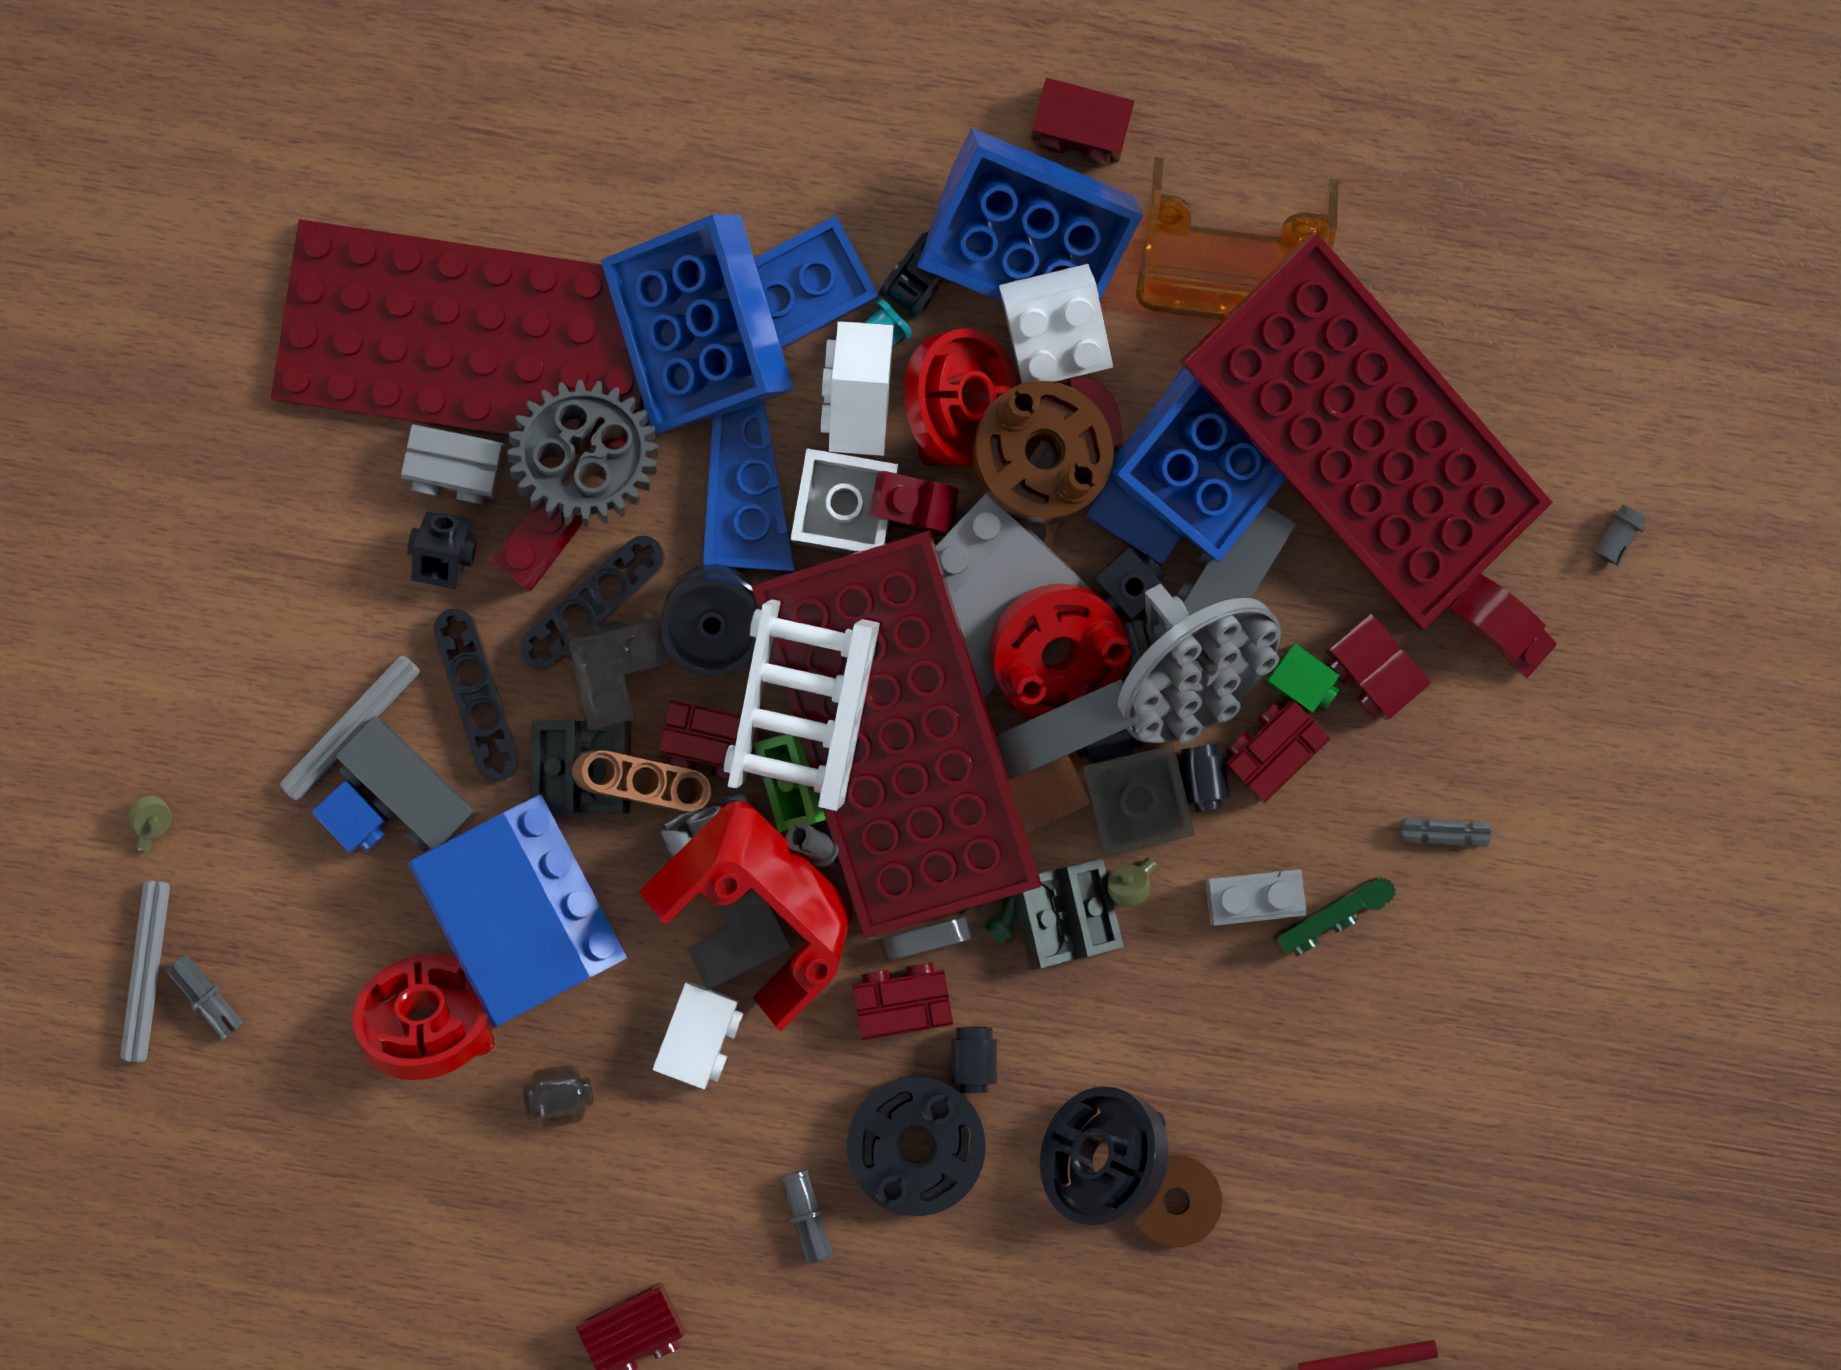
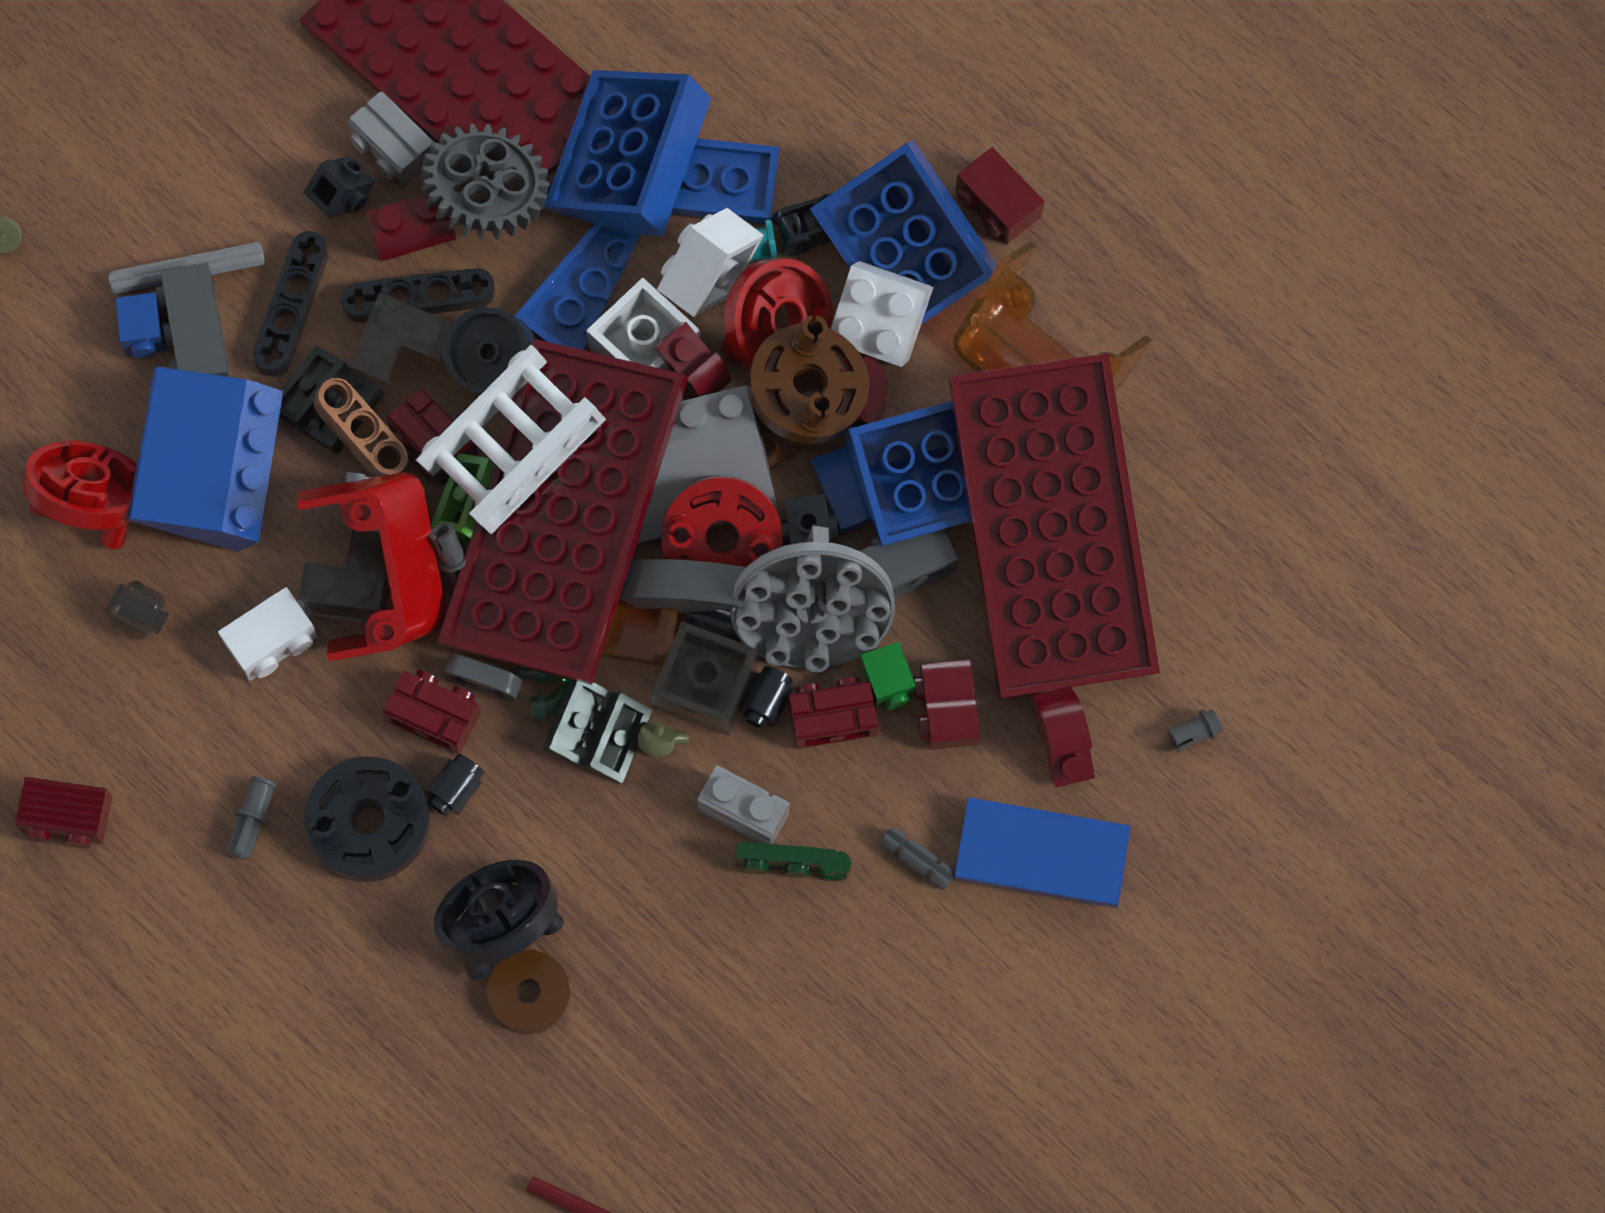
camera: 30 degrees right, 15 degrees down
(1557, 750) = (1042, 852): none -> blue tile

